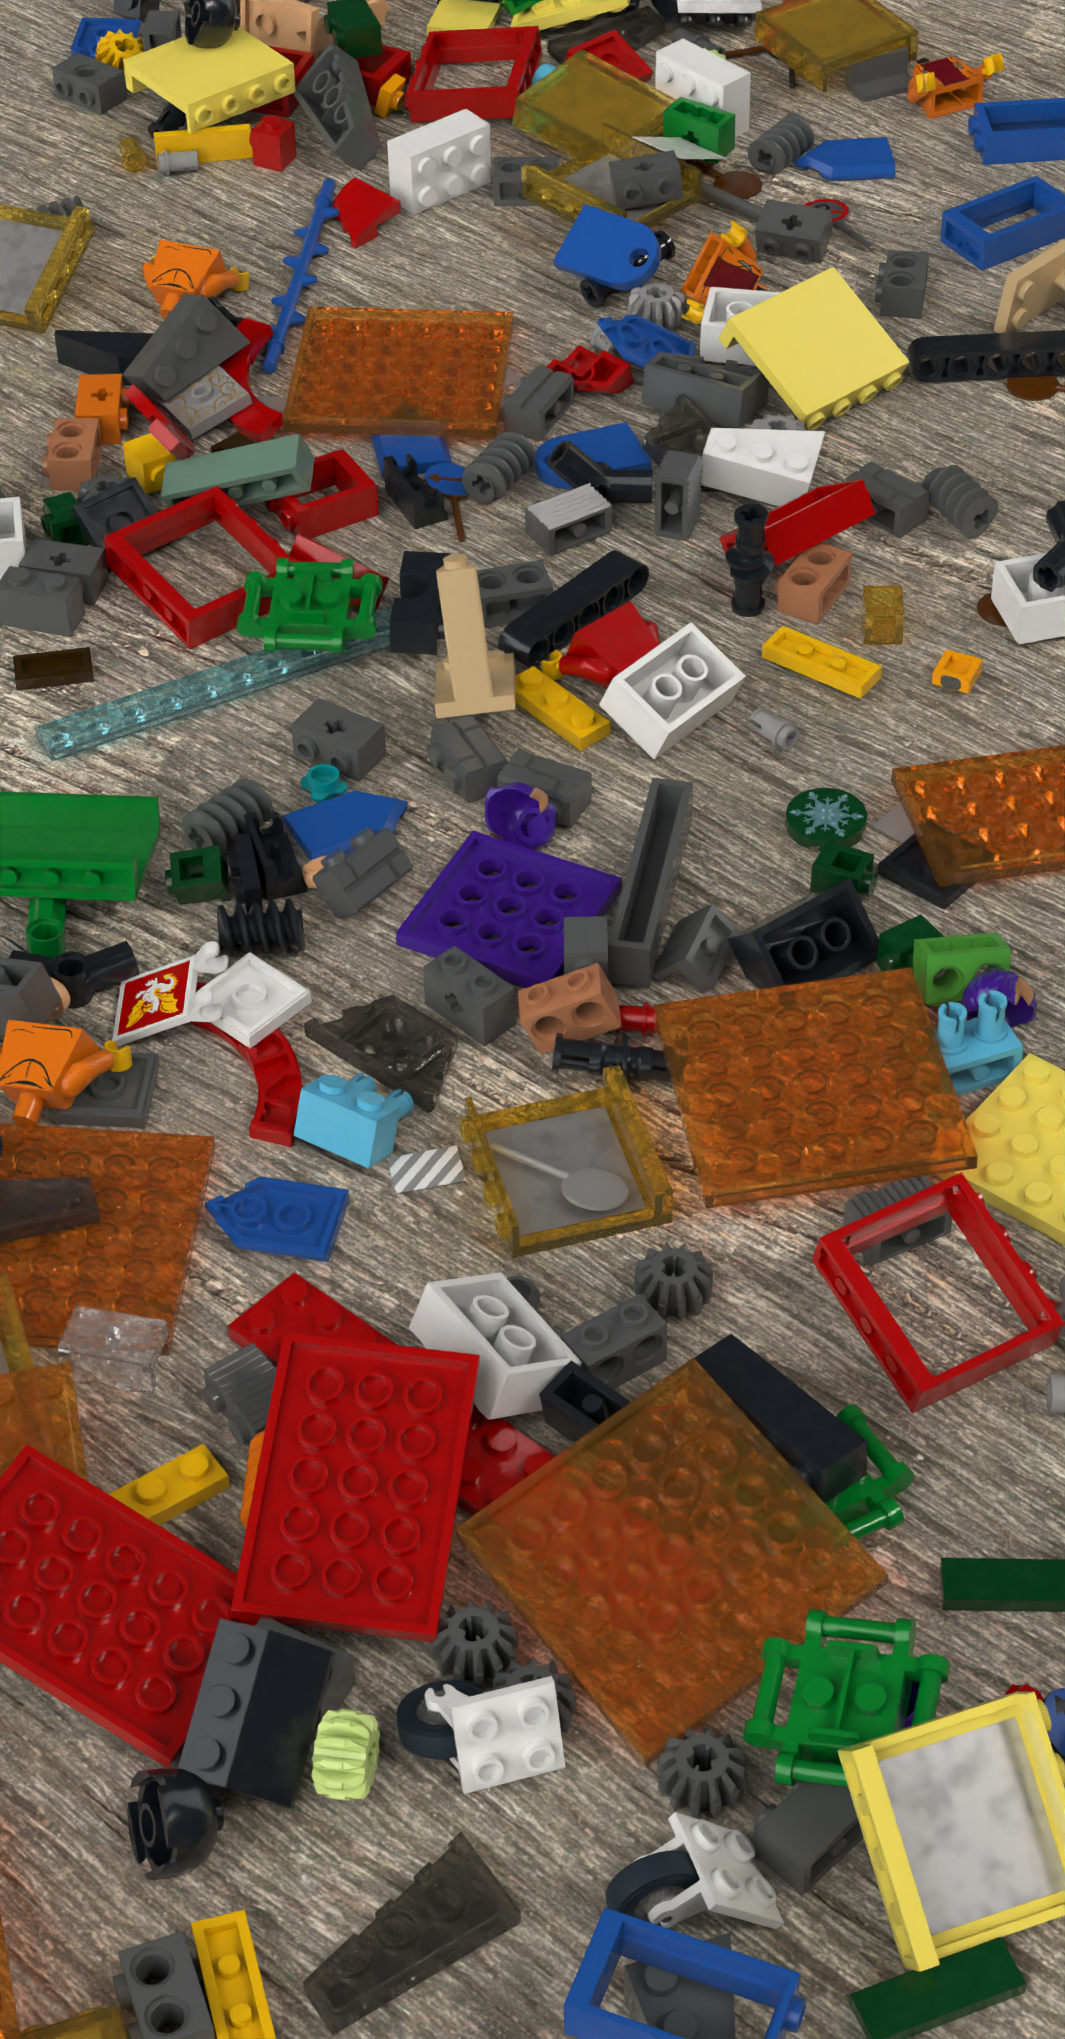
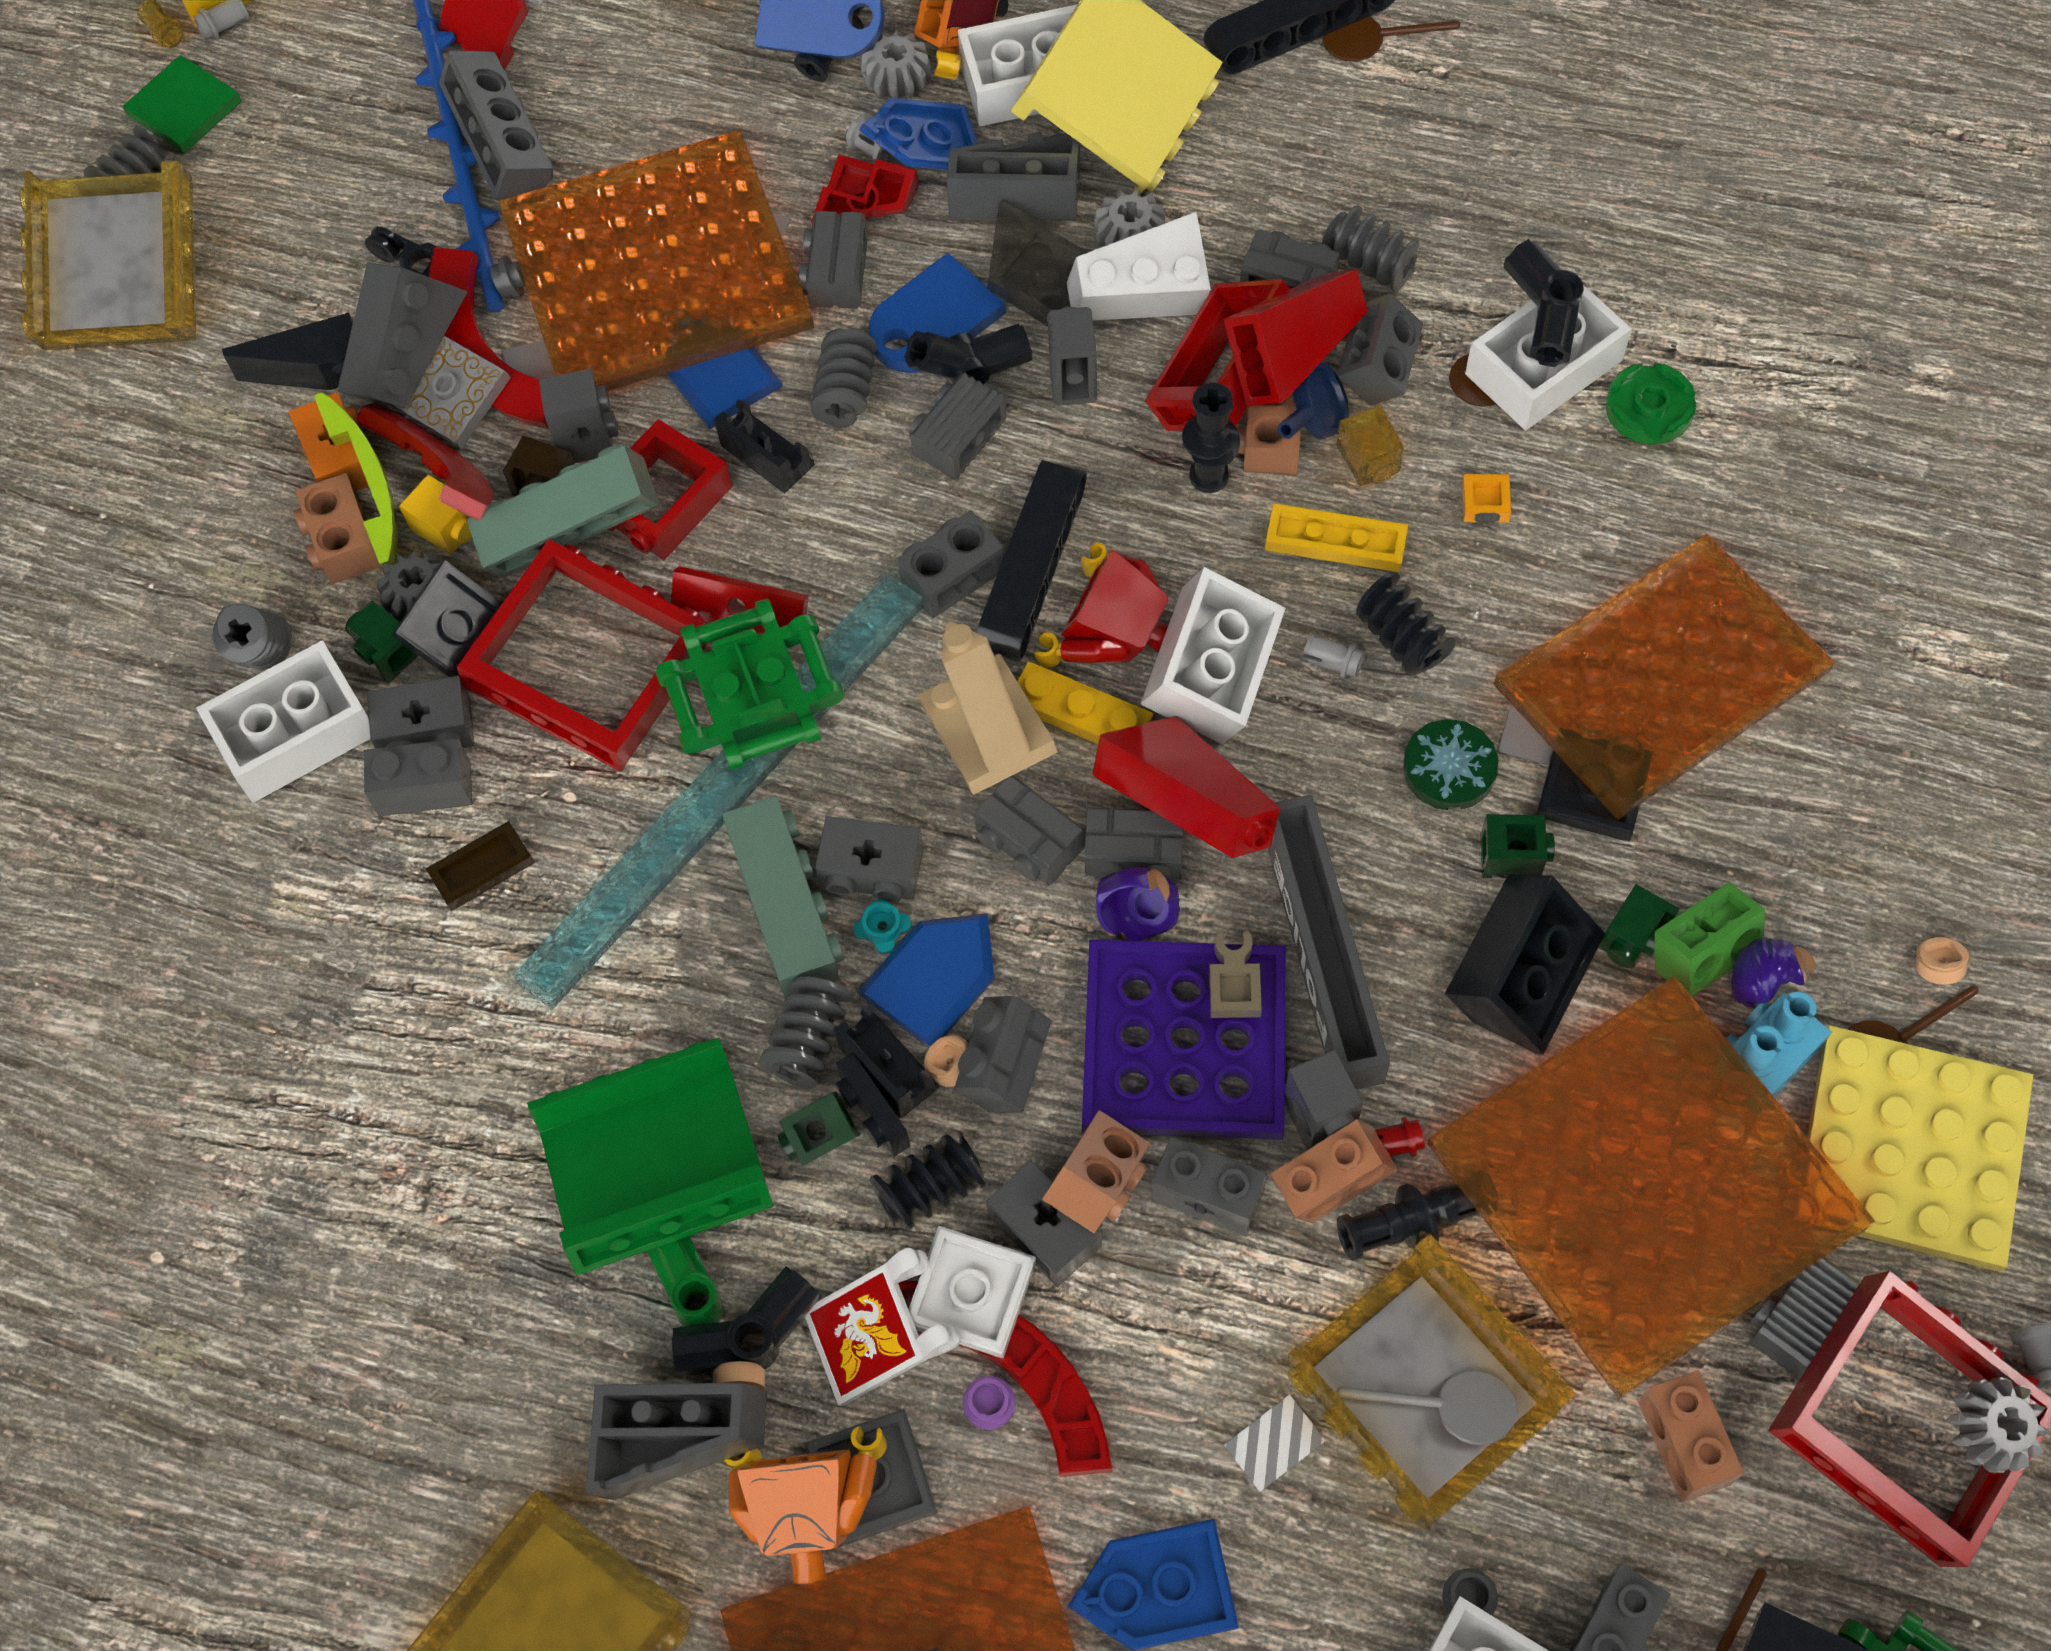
camera: 20 degrees left, 20 degrees up
(107, 456) = (343, 429): none -> lime slope
(120, 202) = (182, 103): none -> green tile
(189, 270) = (334, 207): orange torso -> none
(223, 1071) = (989, 1402): none -> medium lavender plate
(261, 733) = (780, 892): none -> sand green brick
(284, 415) = (578, 414): none -> dark grey brick
(286, 351) = (508, 278): none -> dark grey plate
(332, 975) = (1017, 1212): none -> dark grey brick
(334, 261) = (494, 123): none -> dark grey brick
(351, 1117) = (1170, 1427): medium azure brick -> none
(385, 950) = (1097, 1173): none -> nougat brick
(391, 1046) = (1158, 1290): clear smoke wing -> none
(417, 616) = (883, 660): black arch -> none
(448, 481) = (788, 411): blue piece -> none
(565, 879) = (1234, 985): none -> dark tan plate
(599, 750) = (1187, 784): none -> red slope
(674, 1281) = (1607, 1508): dark grey gear -> none
(698, 948) = (1411, 1009): dark grey panel -> none
(751, 1255) = (1690, 1436): none -> nougat brick
(839, 722) = (1401, 627): none -> black piece
(848, 510) = (1292, 333): none -> red slope
(851, 569) = (1319, 405): none -> dark blue piece
(926, 558) = (1381, 350): none -> dark grey brick
(978, 1293) = (2000, 1444): none -> light grey gear

